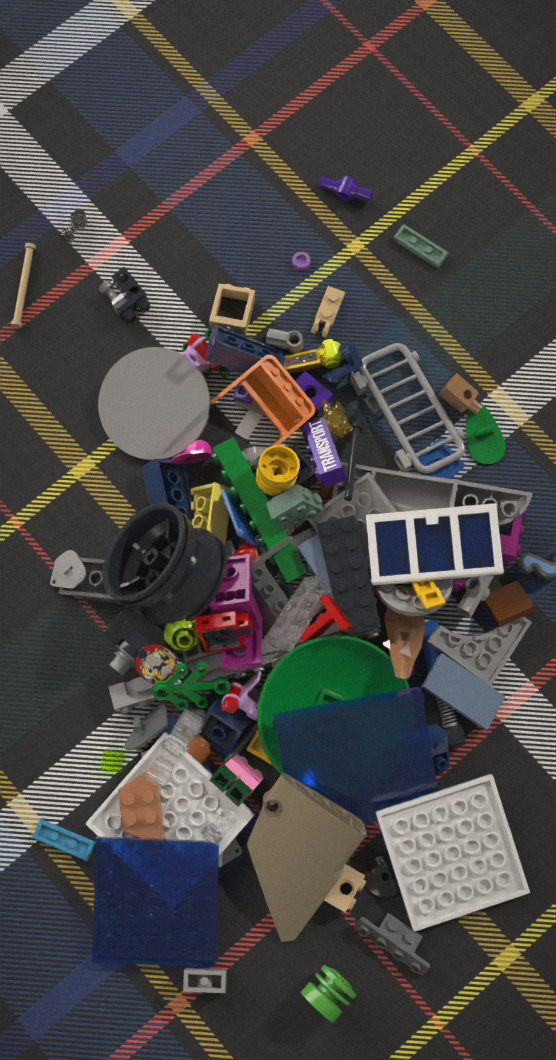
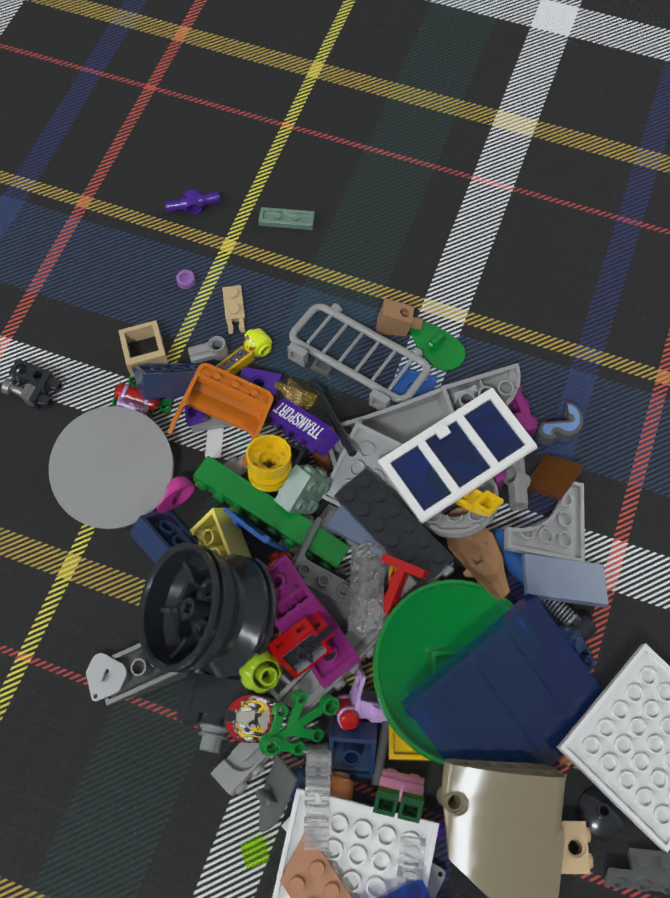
camera: 30 degrees left, 10 degrees down
(351, 366) = (282, 336): dark blue bracket -> none

